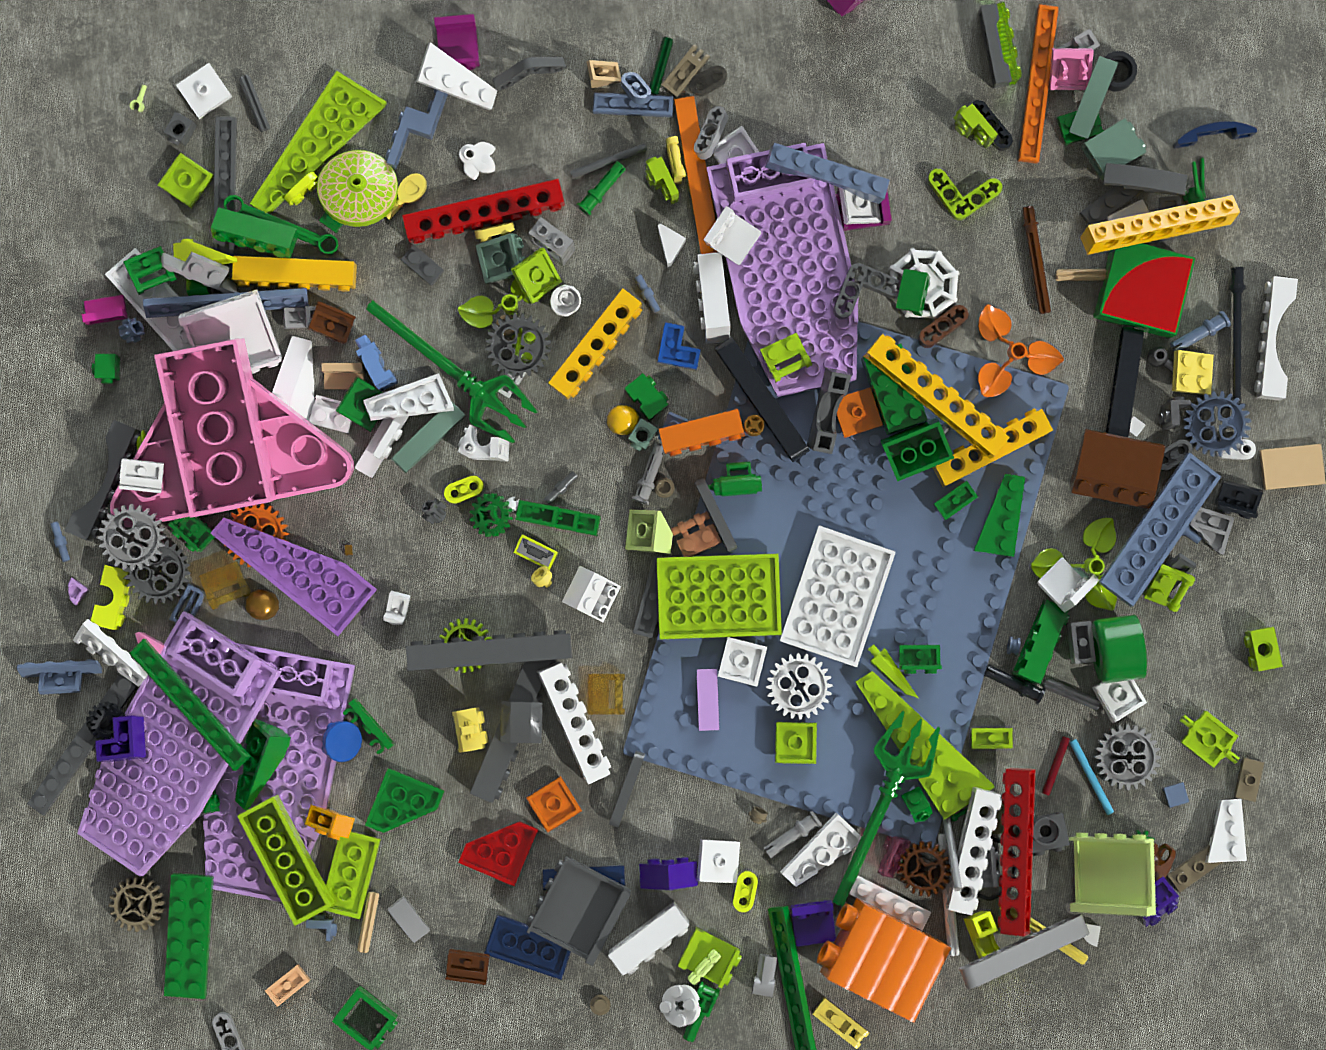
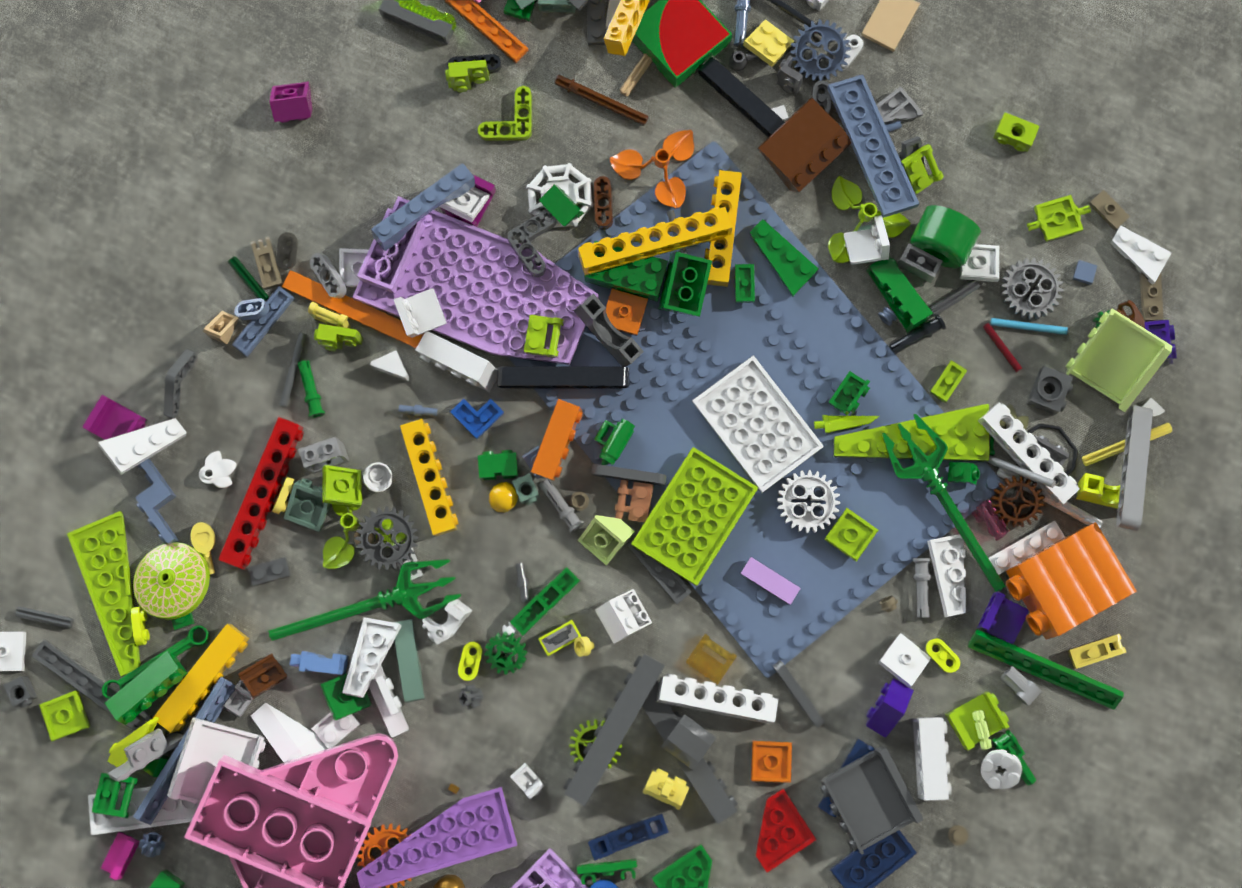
camera: 50 degrees left, 5 degrees down
(341, 375) = (310, 696): tan panel -> none
(408, 724) = (628, 836): none -> dark blue slope
(742, 661) = (758, 533): white plate -> none
(754, 422) = (581, 395): pearl gold wheel -> none
(1024, 842) = (1111, 458): red brick -> none
(1238, 499) = (888, 73): black bracket -> none

